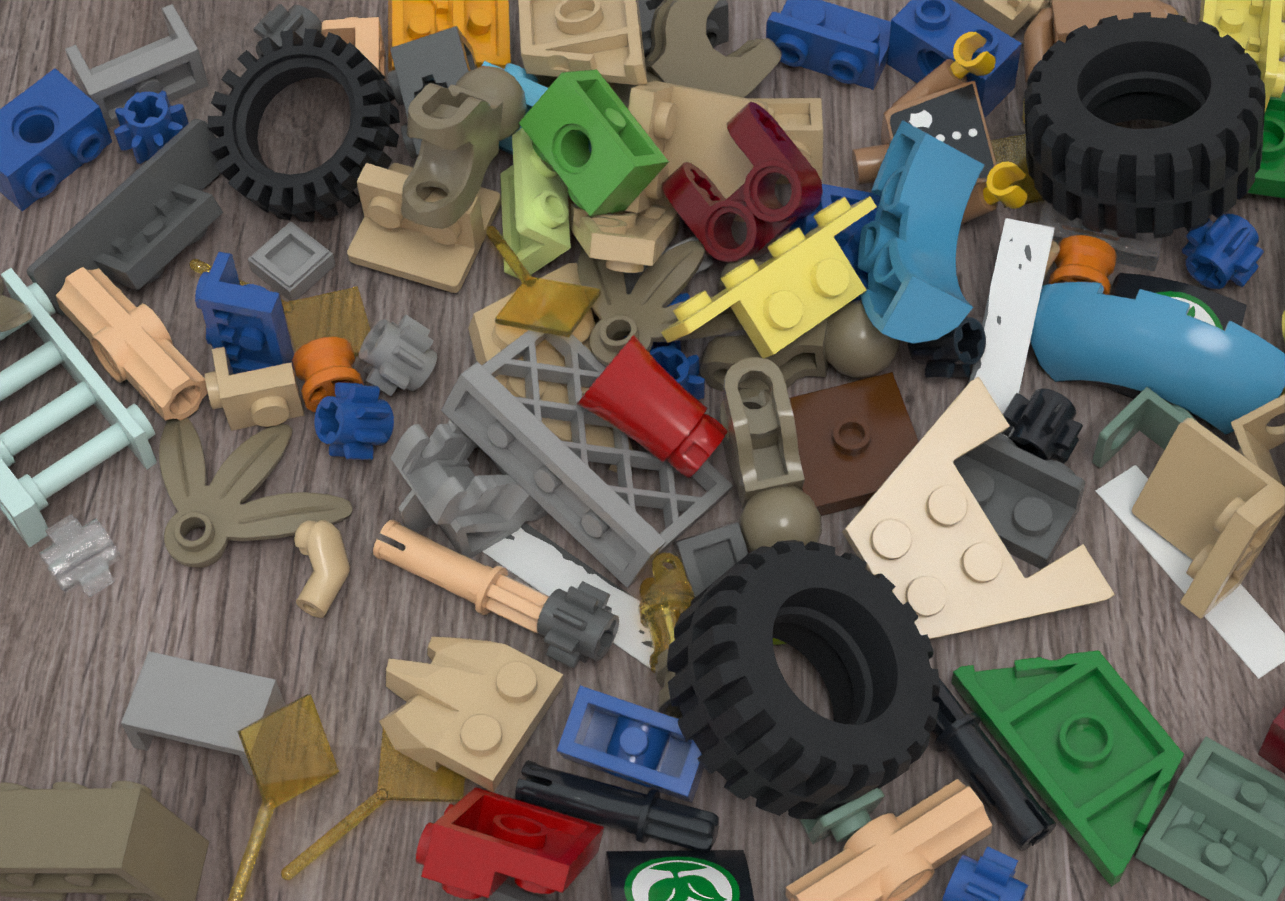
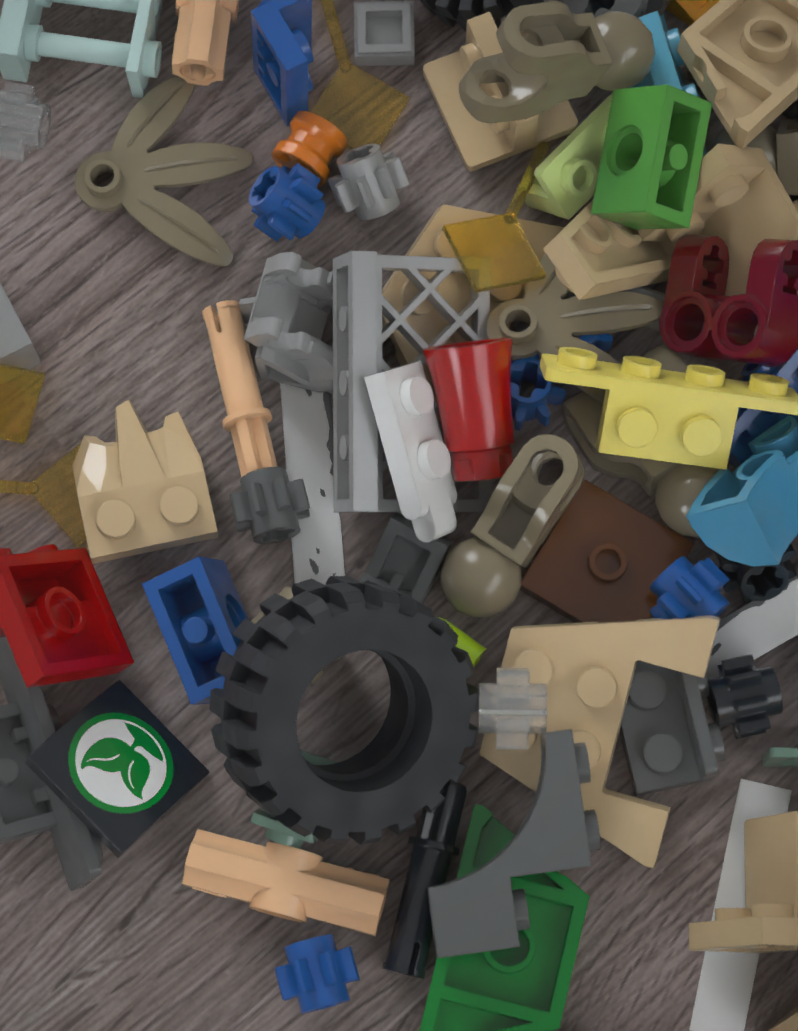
camera: 45 degrees right, 15 degrees up
(255, 396) = (245, 119): tan bracket -> none
(329, 564) = (167, 288): tan arm -> none
(618, 807) = (186, 721): black axle -> none
(653, 477) = (414, 449): none -> white hinge
(663, 602) = (344, 551): clear yellow piece -> none
(915, 564) = (512, 708): none -> clear gear
(928, 393) = (689, 590): none -> blue gear
(1032, 621) = (557, 834): none -> dark grey arch

